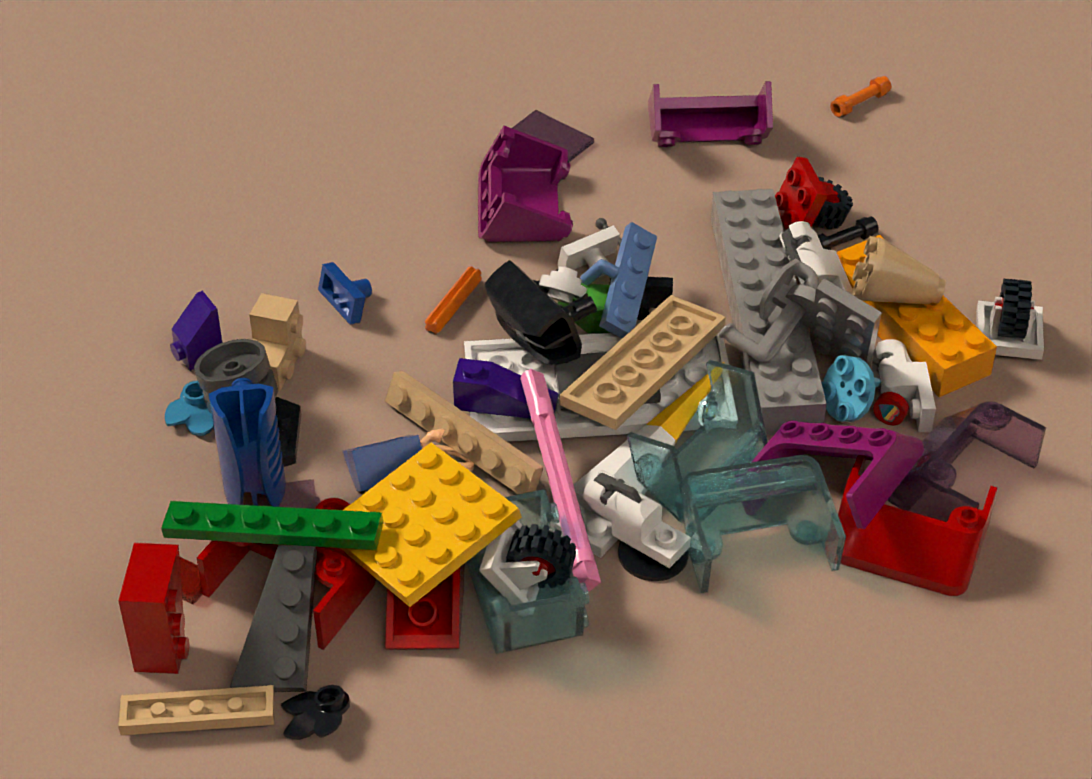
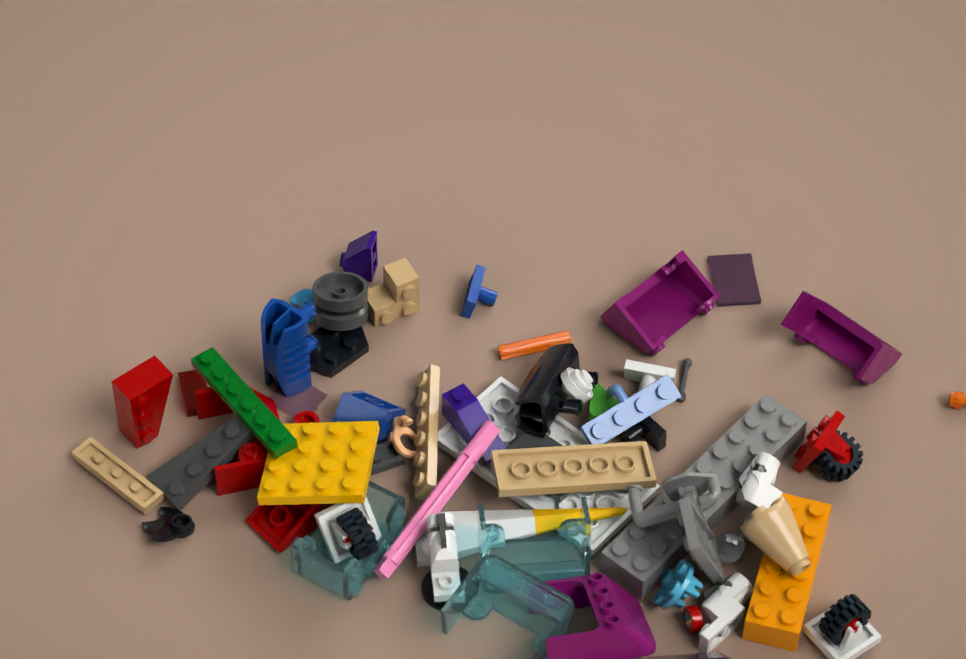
camera: 45 degrees right, 5 degrees up
(864, 228) = (803, 484): black bar -> none

